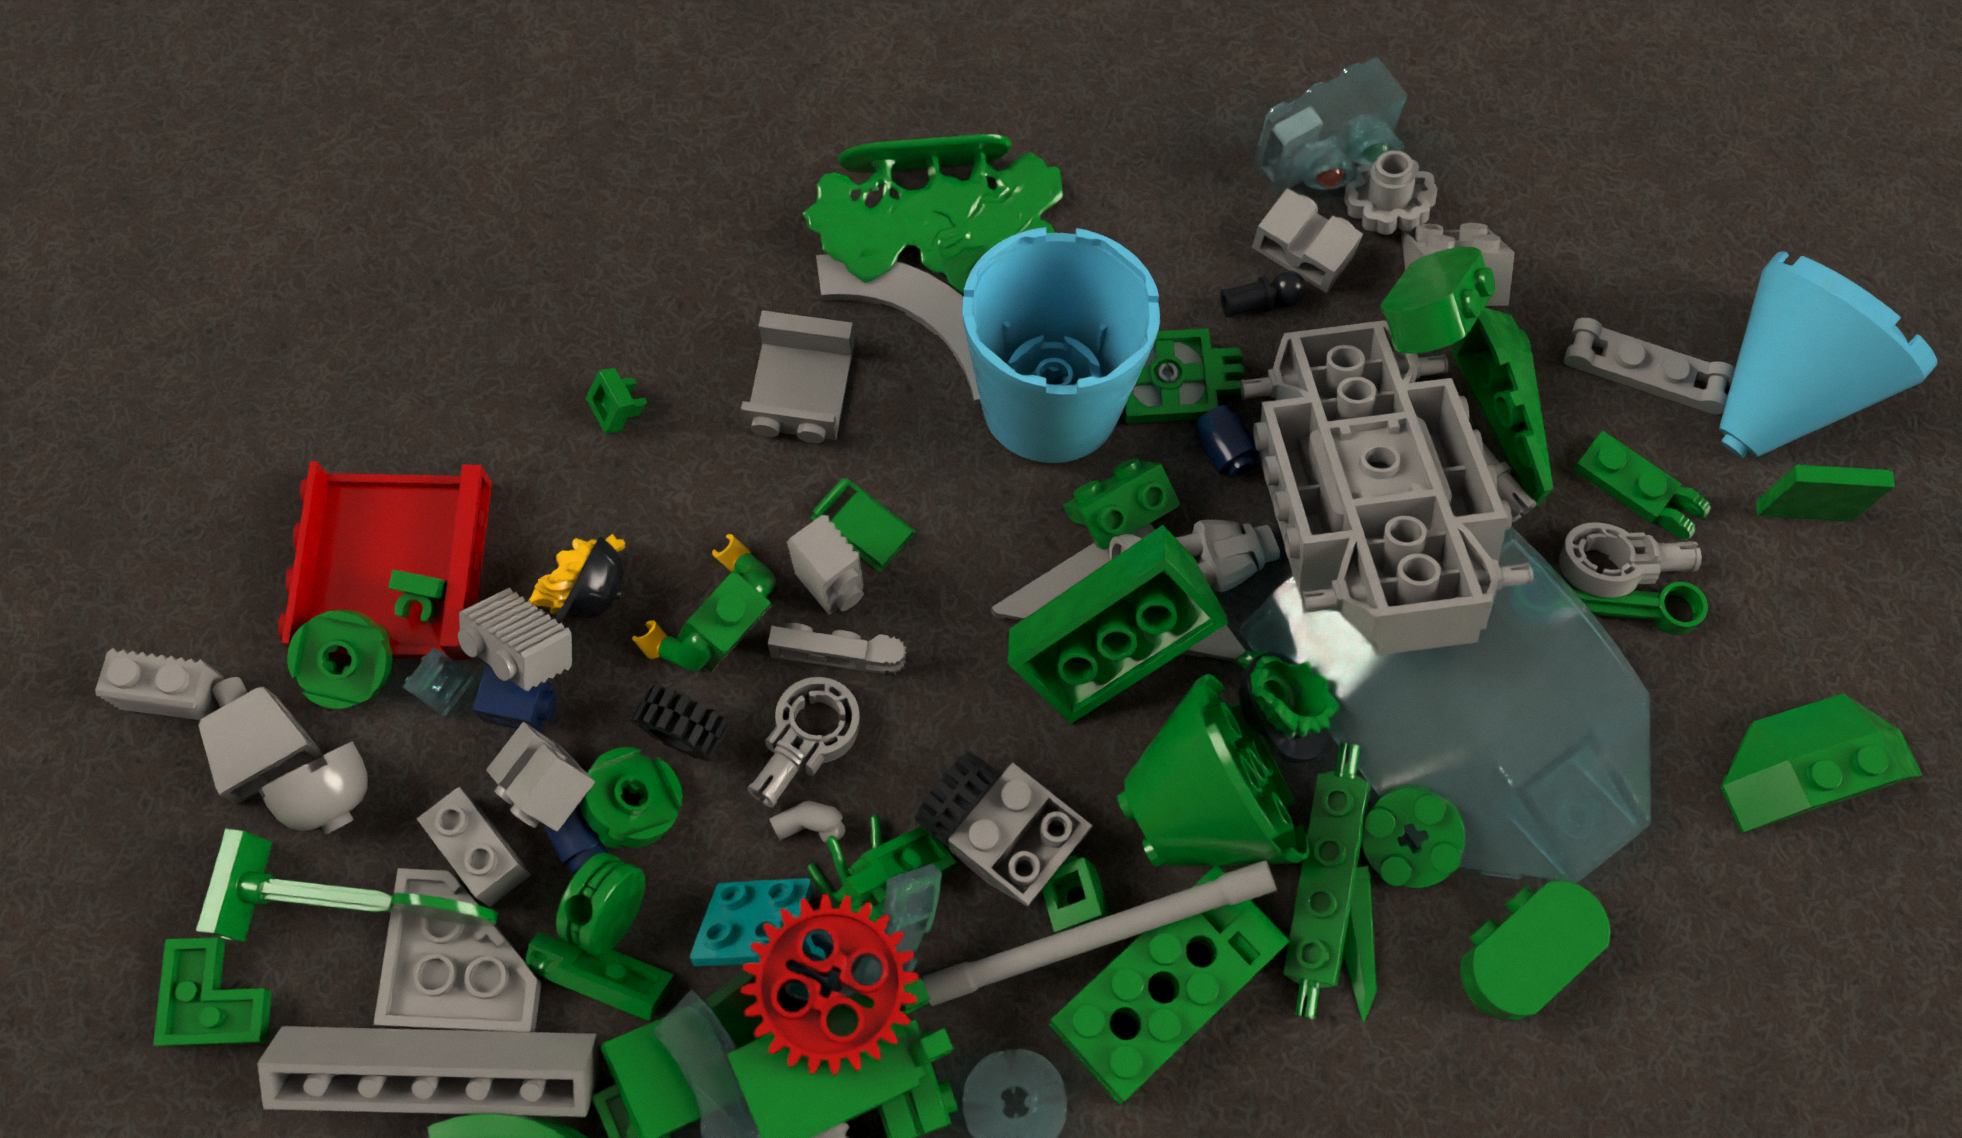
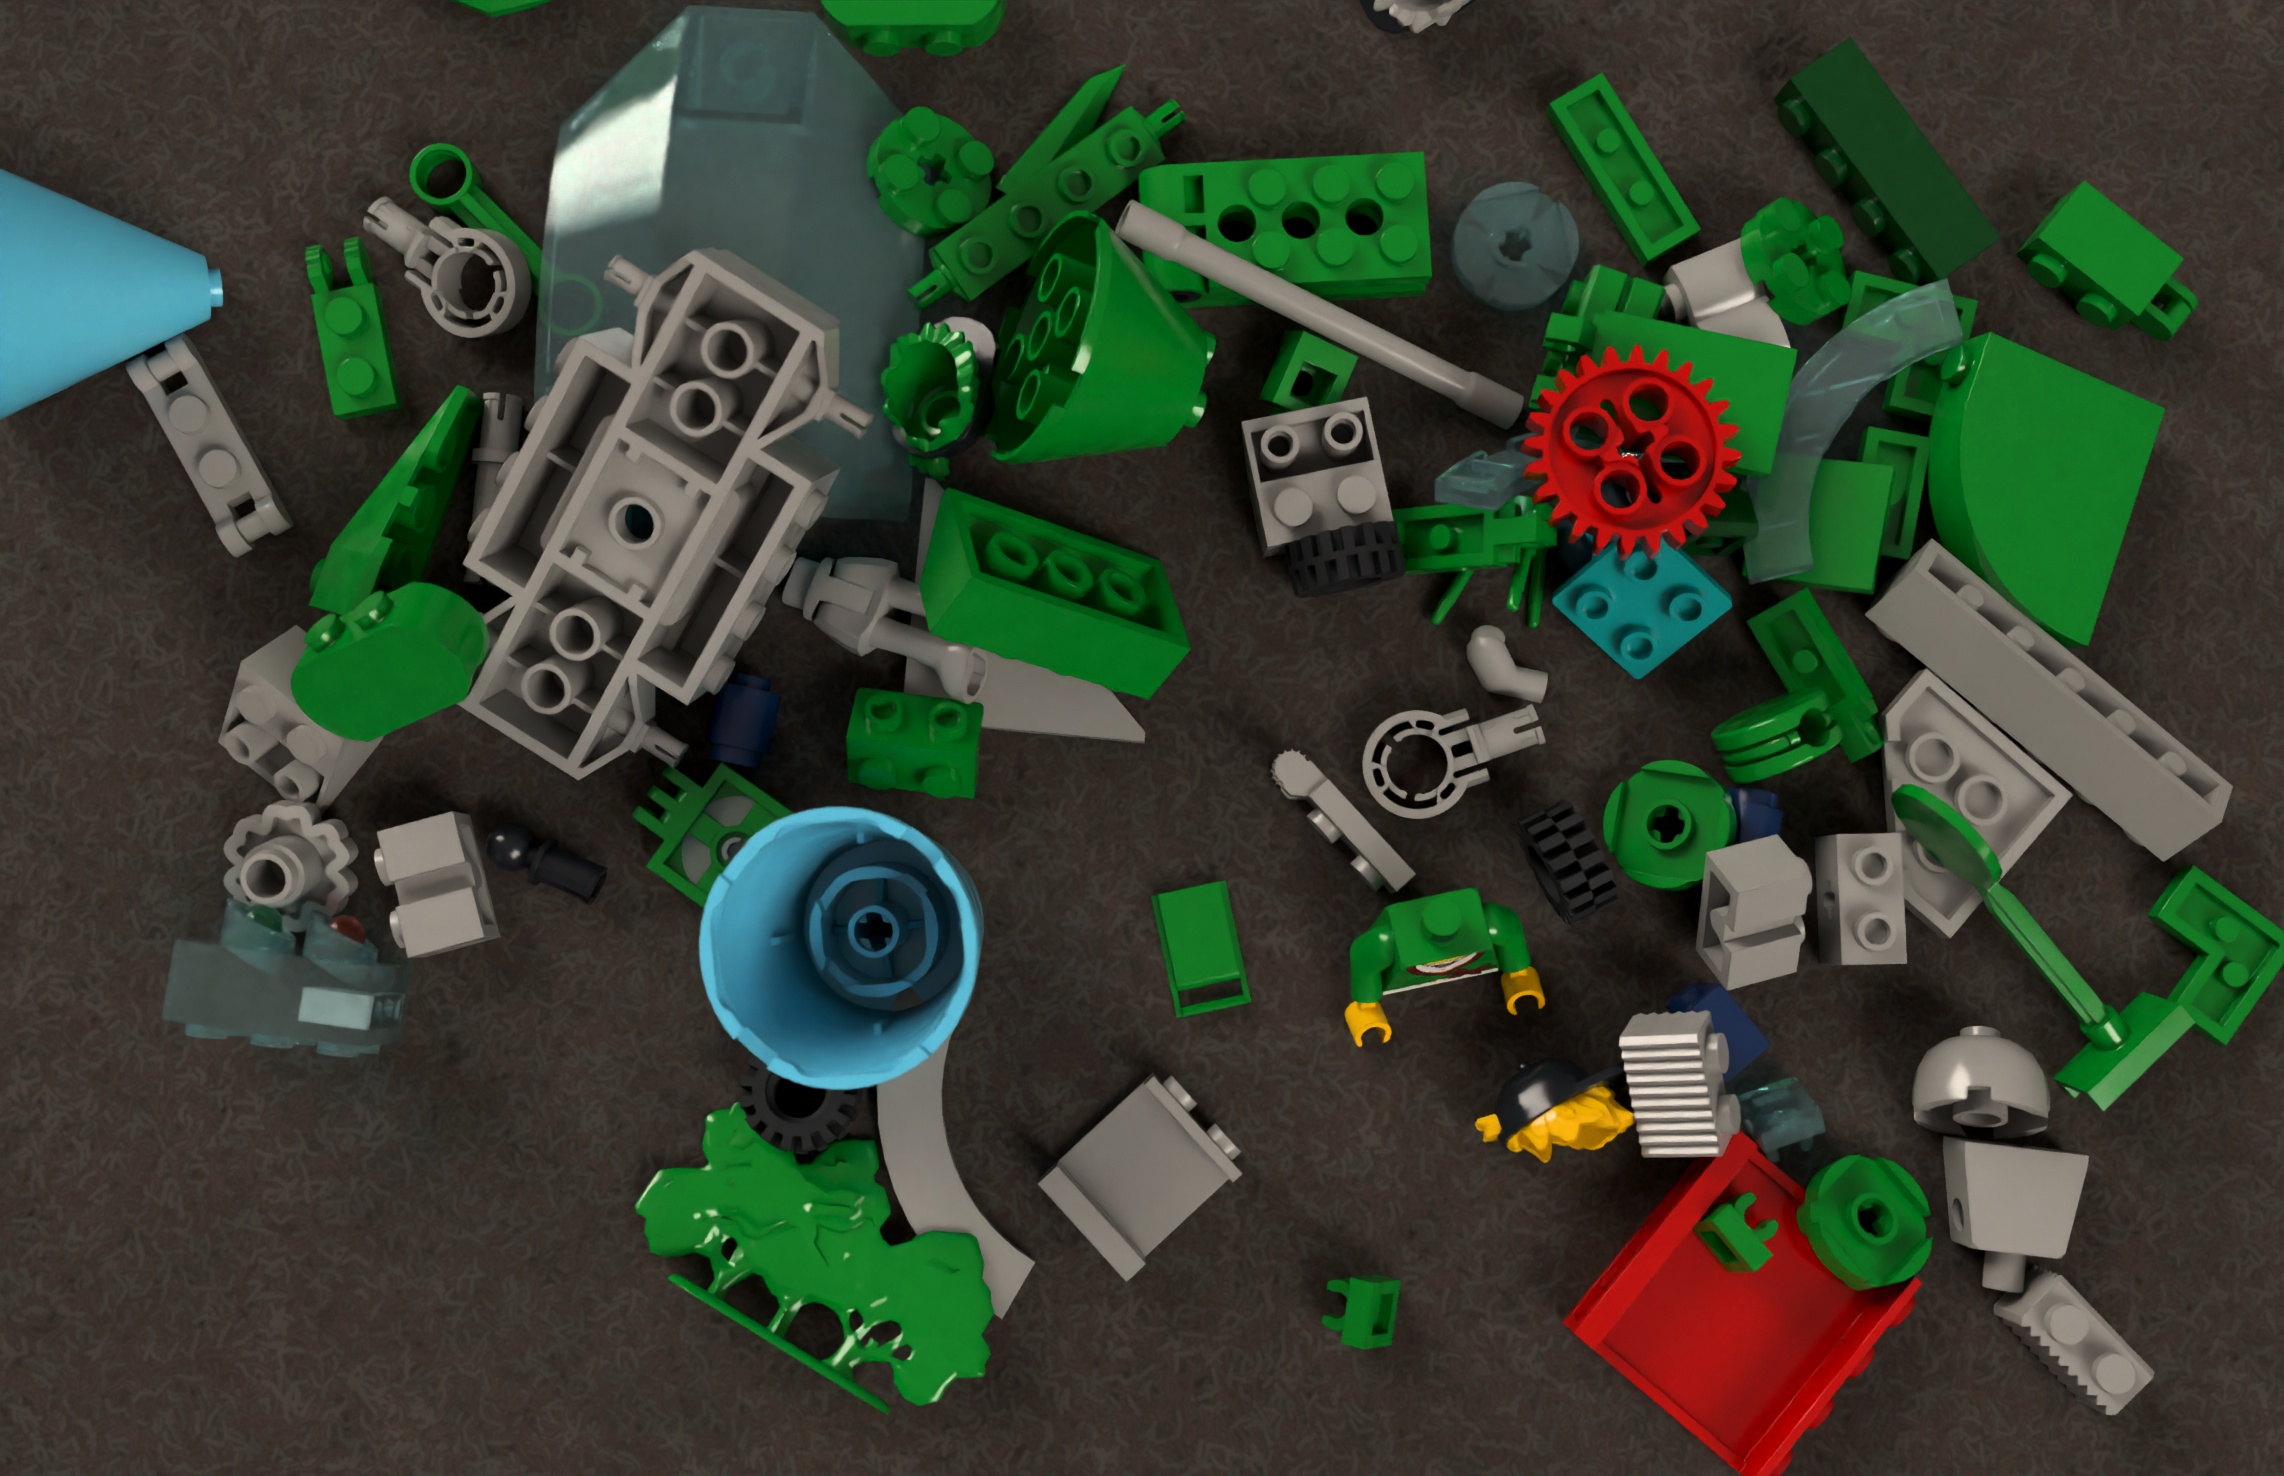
camera: 145 degrees left, 15 degrees up
(827, 565) = (1290, 908): light grey brick -> none
(1825, 493) = (183, 153): green tile -> none

